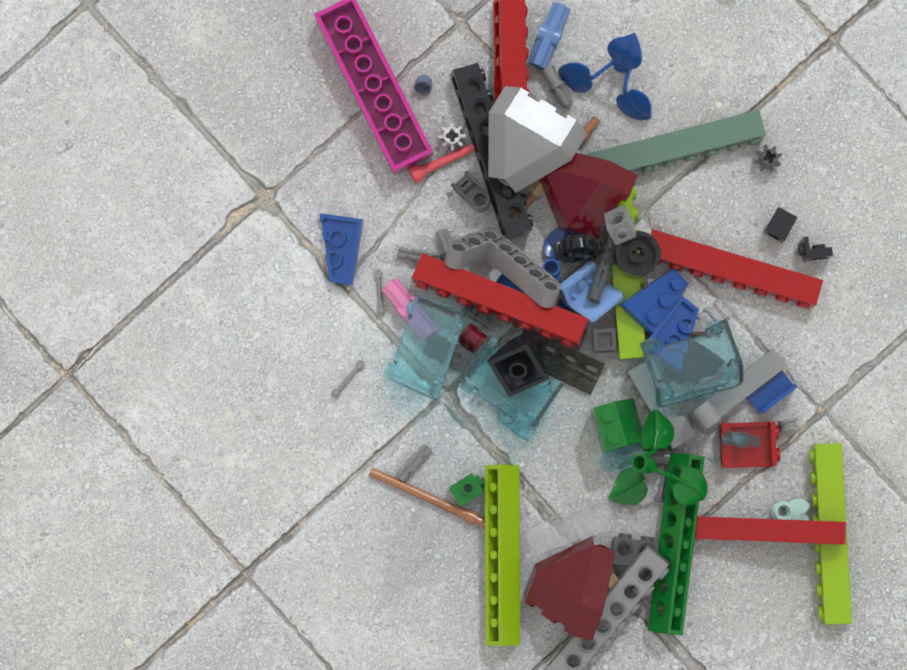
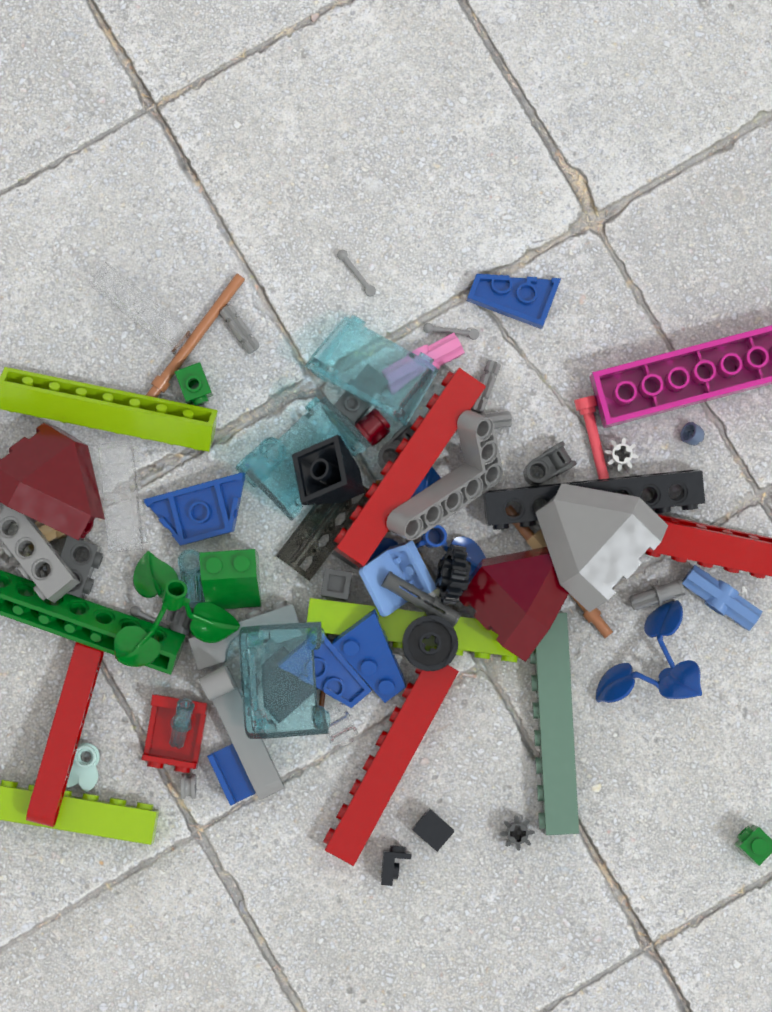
camera: 95 degrees right, 0 degrees up
(567, 463) = (201, 509): none -> blue wing
(620, 225) = (469, 627): light grey brick -> none

